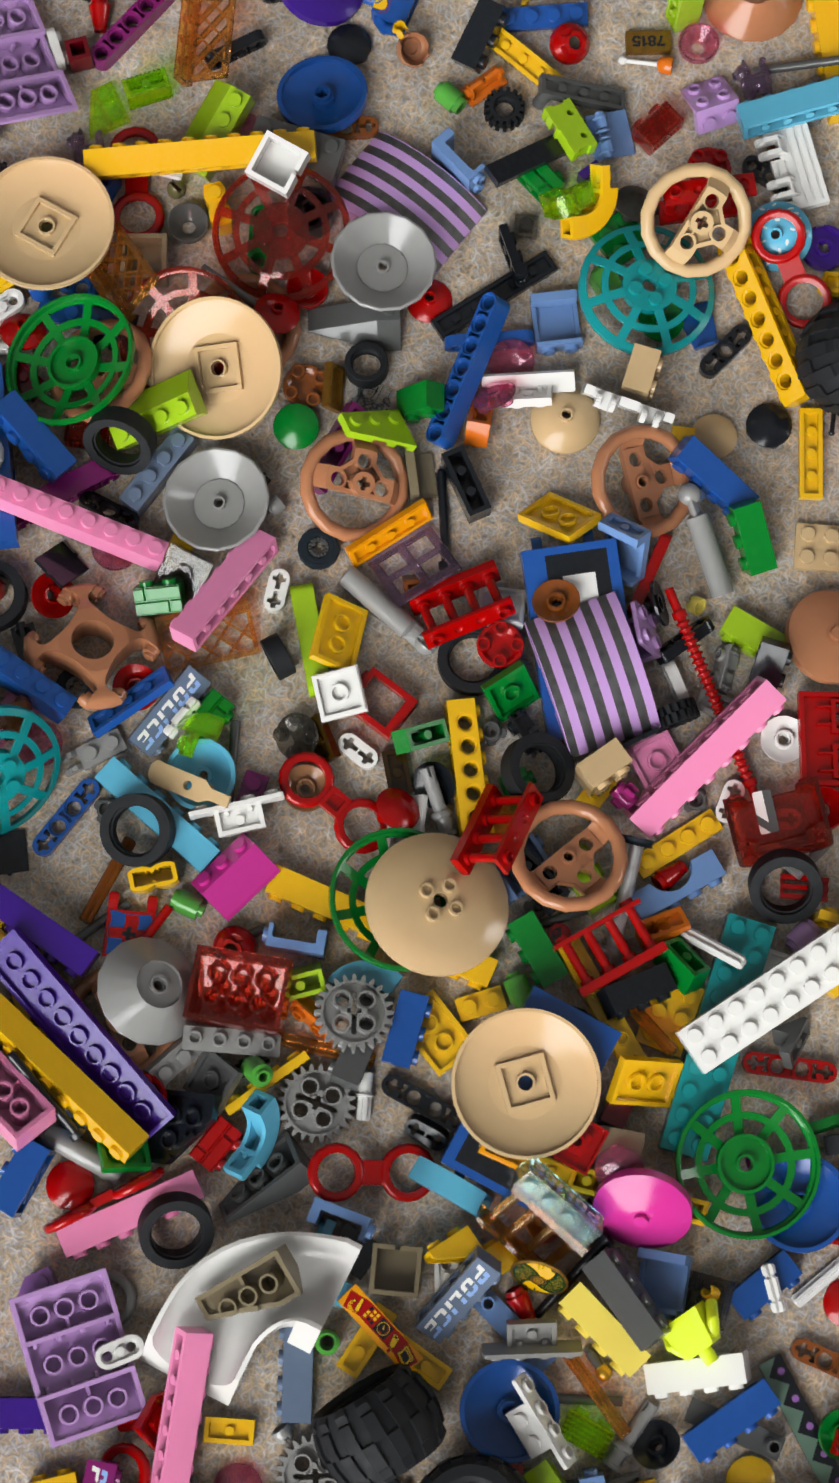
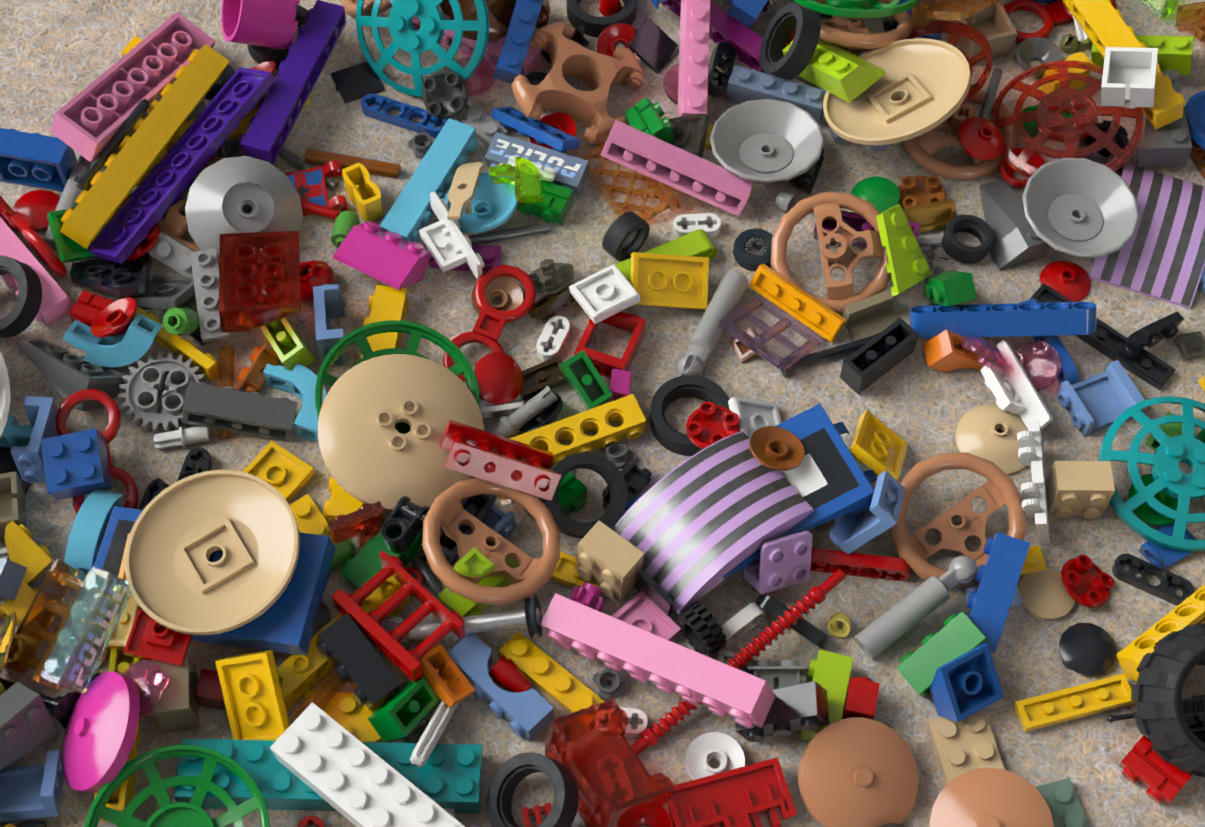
camera: 75 degrees right, 20 degrees down
(66, 773) = (444, 93): none -> pearl dark grey dish
(109, 837) = (412, 180): black tyre -> none
(230, 1133) = (114, 318): none -> red dish
(375, 1014) = (260, 386): light grey gear -> none
(382, 1188) = (76, 464): none -> blue brick
(406, 1029) = (258, 447): blue brick -> none
(430, 707) = (620, 383): none -> dark pink slope
(454, 587) = (757, 370): red fence -> none
(506, 955) = (362, 523): none -> clear red plate
(510, 691) = (664, 449): green plate -> none
(525, 921) = (405, 519): none -> black piece
(595, 874) = (474, 564): none -> lime tile
(656, 603) = (821, 570): black dish -> none
(715, 403) = (1086, 582): none -> red dish
(765, 811) = (617, 757): sticker -> none
(768, 610) = (861, 698): none -> red brick
(785, 529) = (966, 684): none -> blue slope

